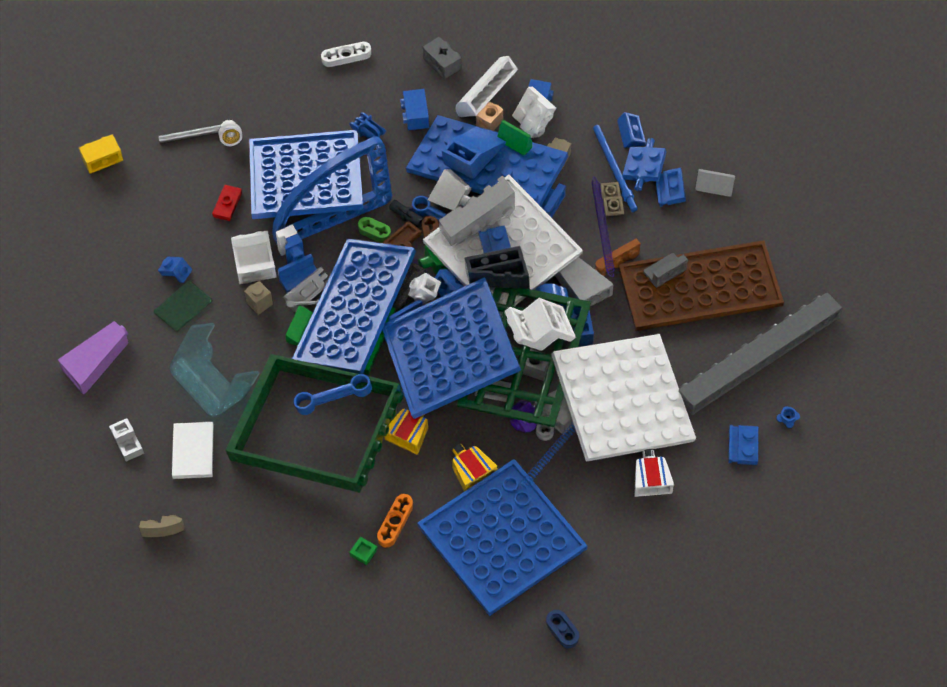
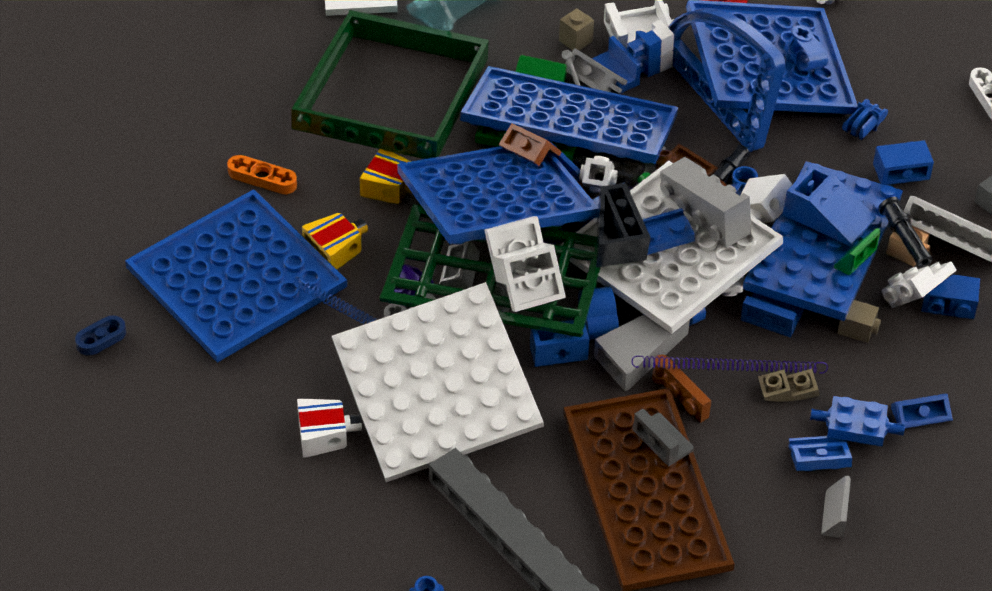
camera: 85 degrees right, 10 degrees down
(309, 148) = (806, 49): none -> blue piece
(332, 394) = (430, 104): blue piece -> none
(363, 550) = (218, 145): green plate -> none
(375, 228) = (705, 138): bright green beam -> none
(401, 327) = (527, 144): none -> dark orange panel
(485, 113) = (901, 224): none -> black pin
(626, 192) = (800, 402): blue bar -> none
(743, 444) = (379, 537): blue plate -> none

